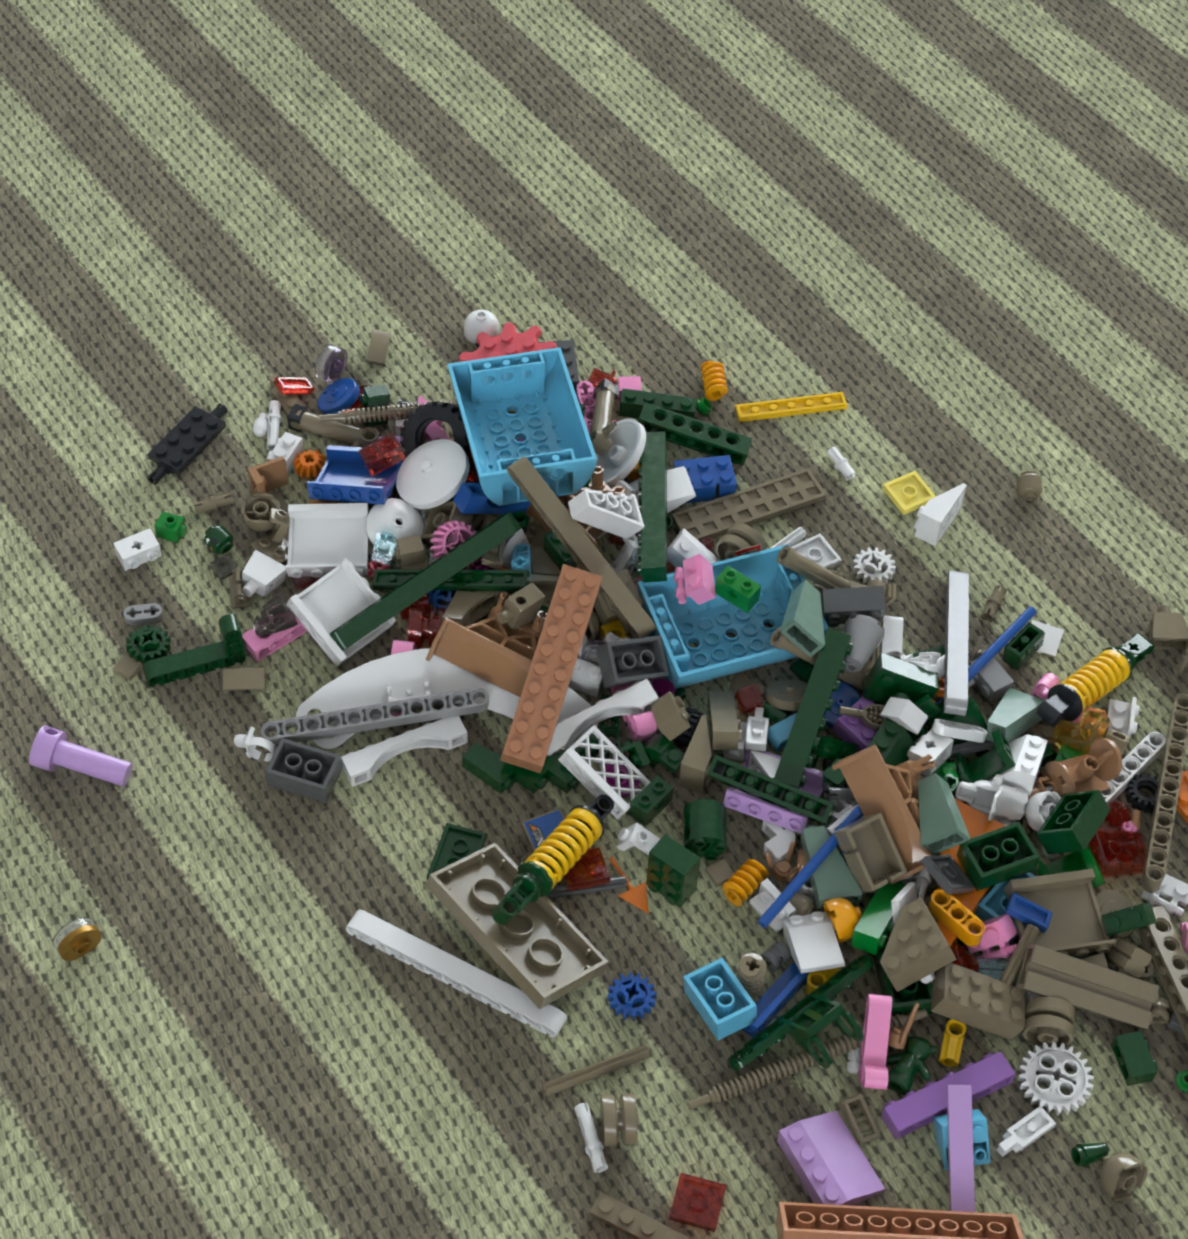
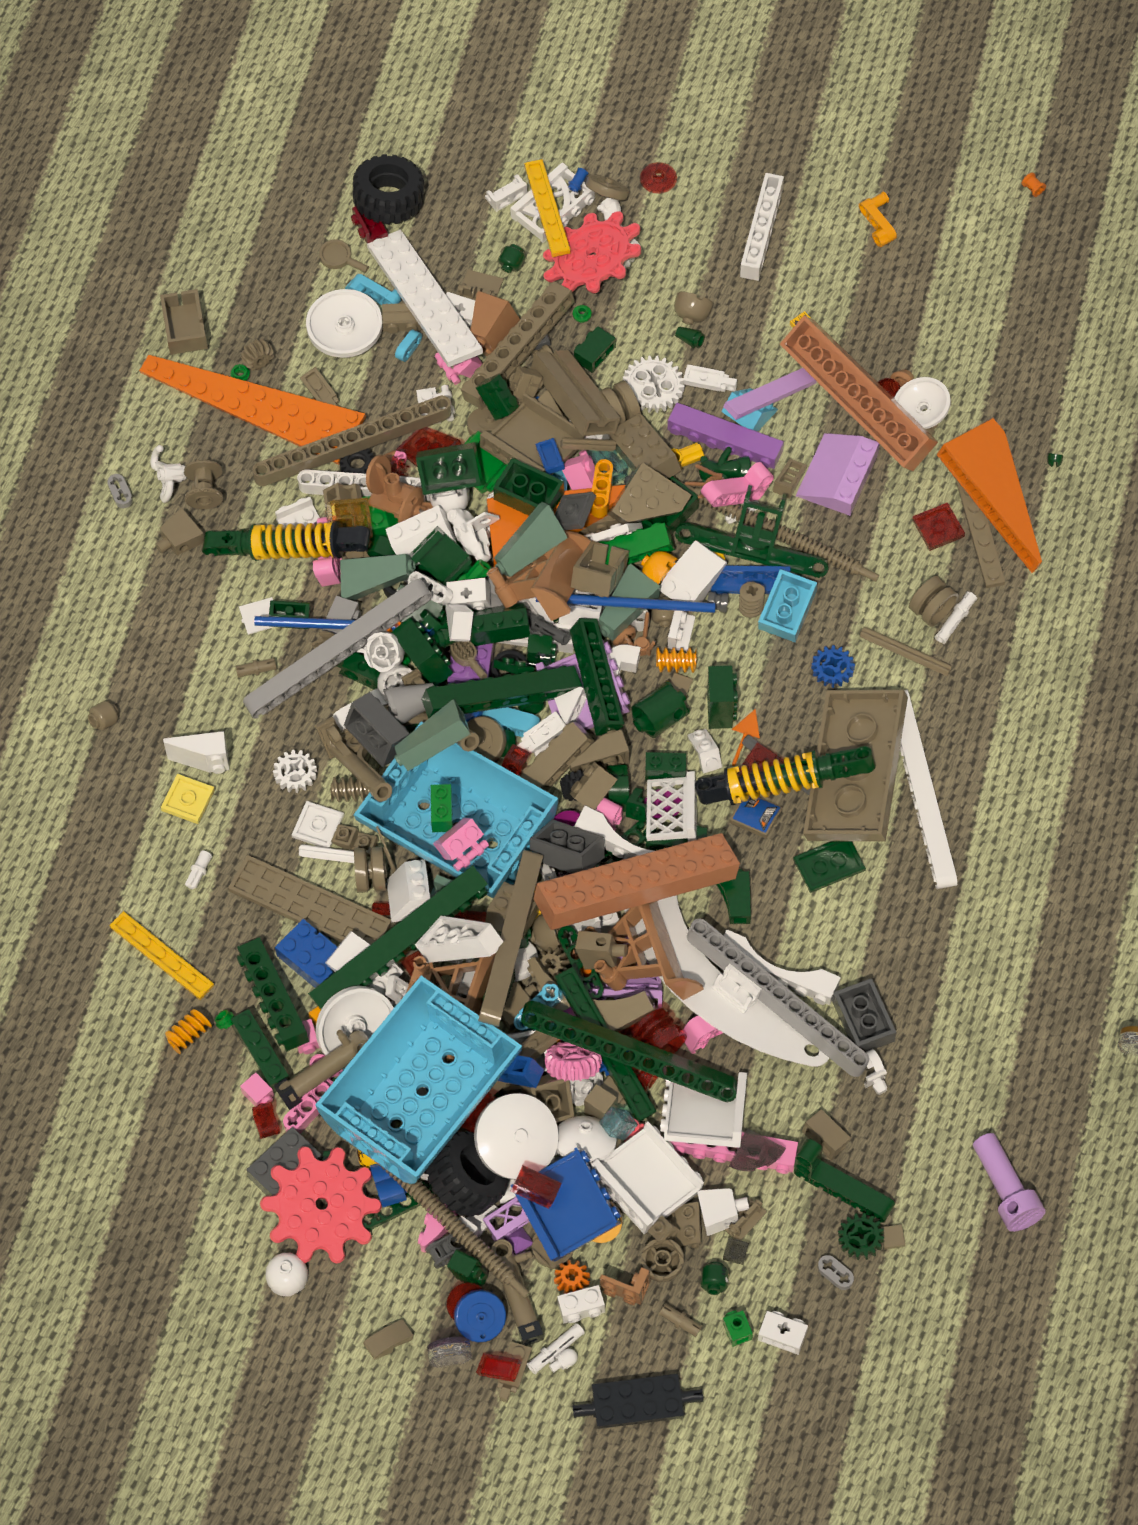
camera: 125 degrees left, 10 degrees up
(963, 959) = (622, 474): clear red hair -> none

